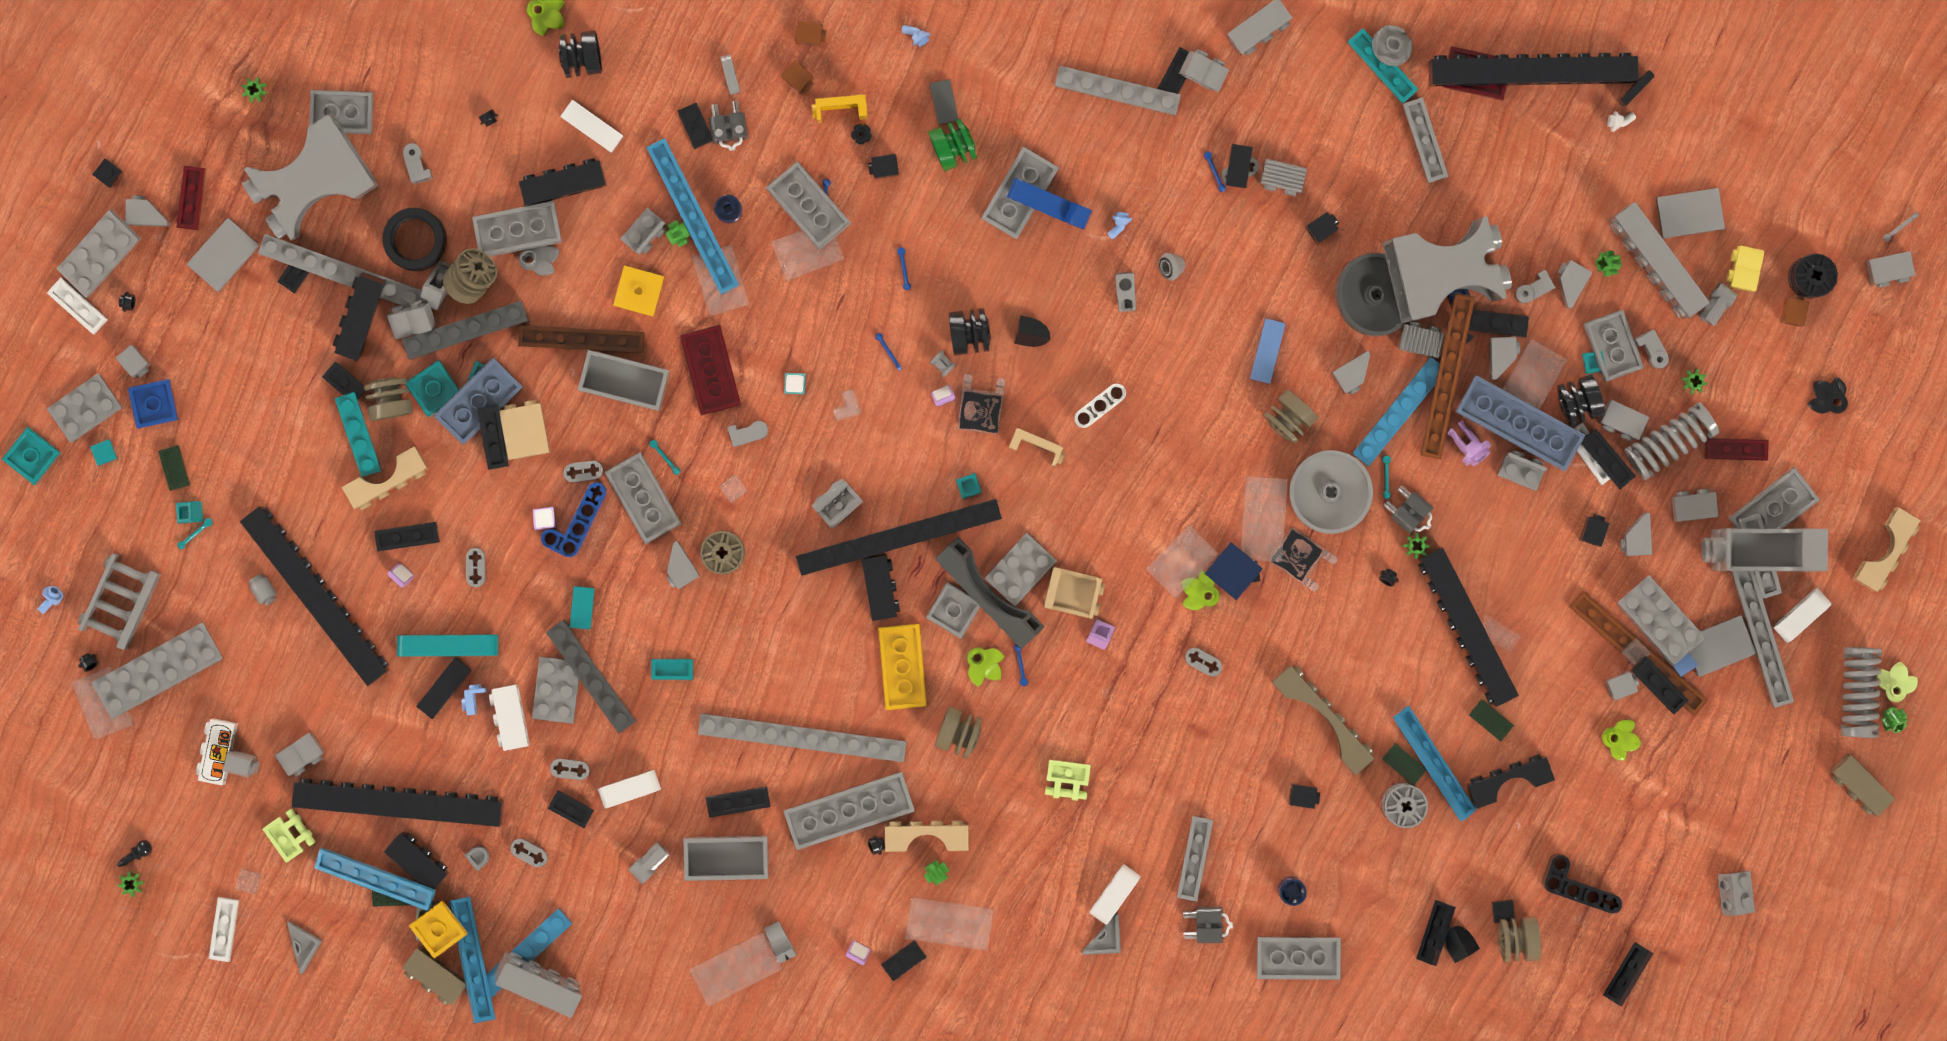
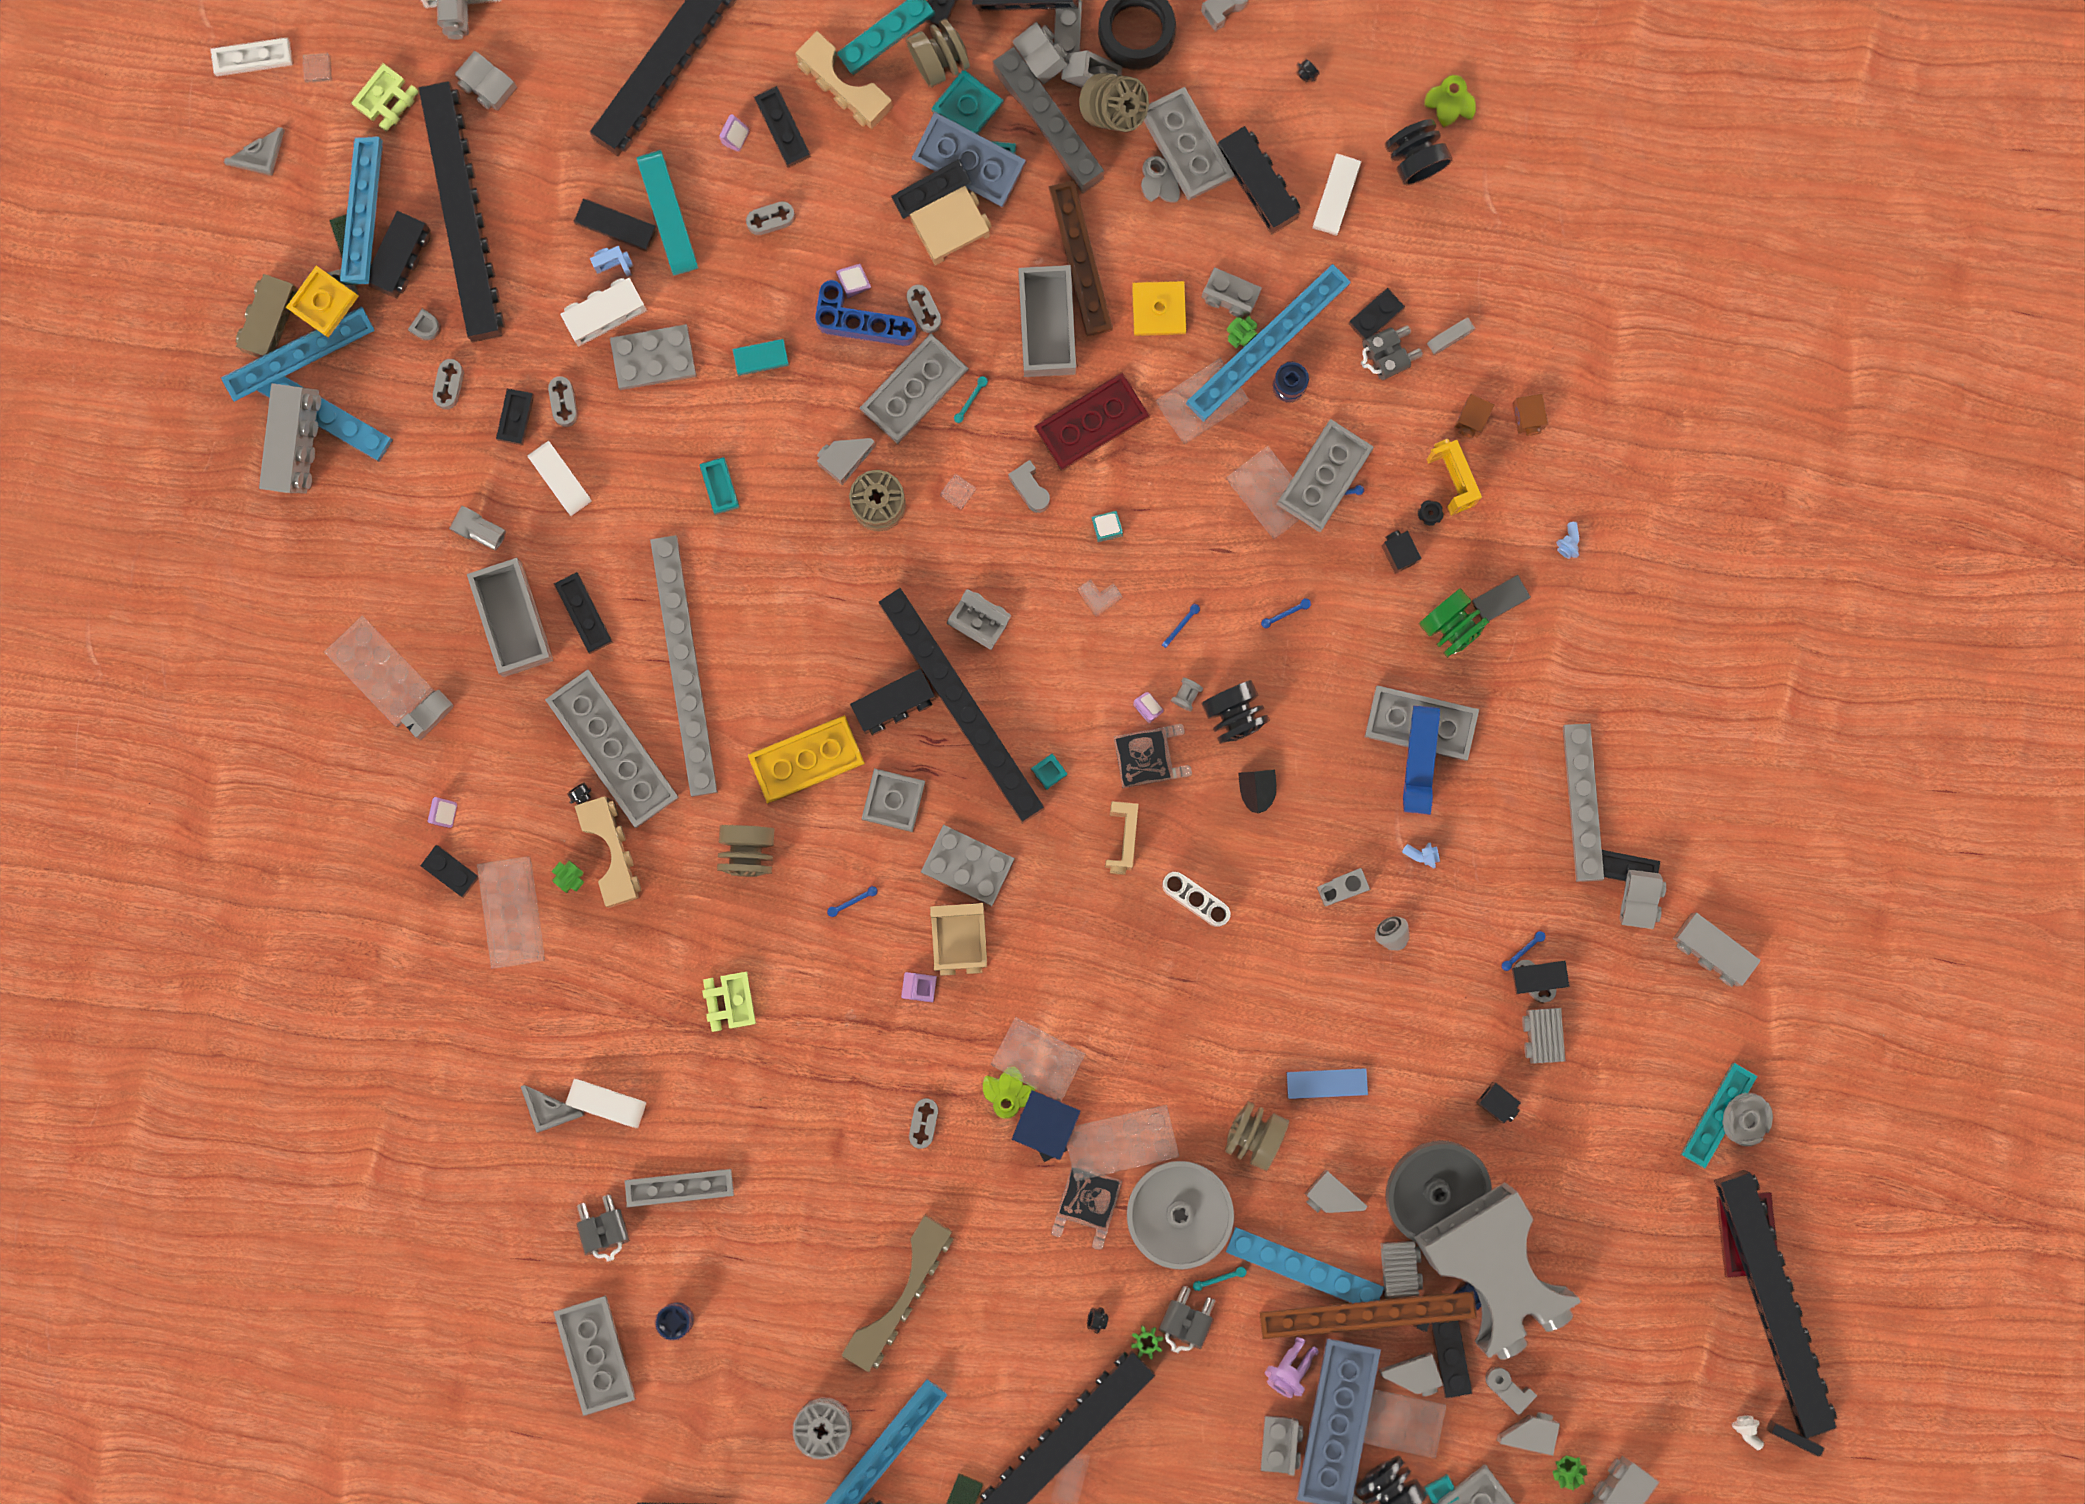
camera: 75 degrees right, 5 degrees down
(591, 676) = (694, 372): dark grey arch -> none
(960, 564) = (901, 879): dark grey arch -> none
(986, 667) = (837, 861): lime plate -> none
(1303, 796) = (796, 1299): black brick -> none
(1404, 764) = (873, 1412): clear green tile -> none
(1425, 140) = (1645, 1196): light grey plate -> none

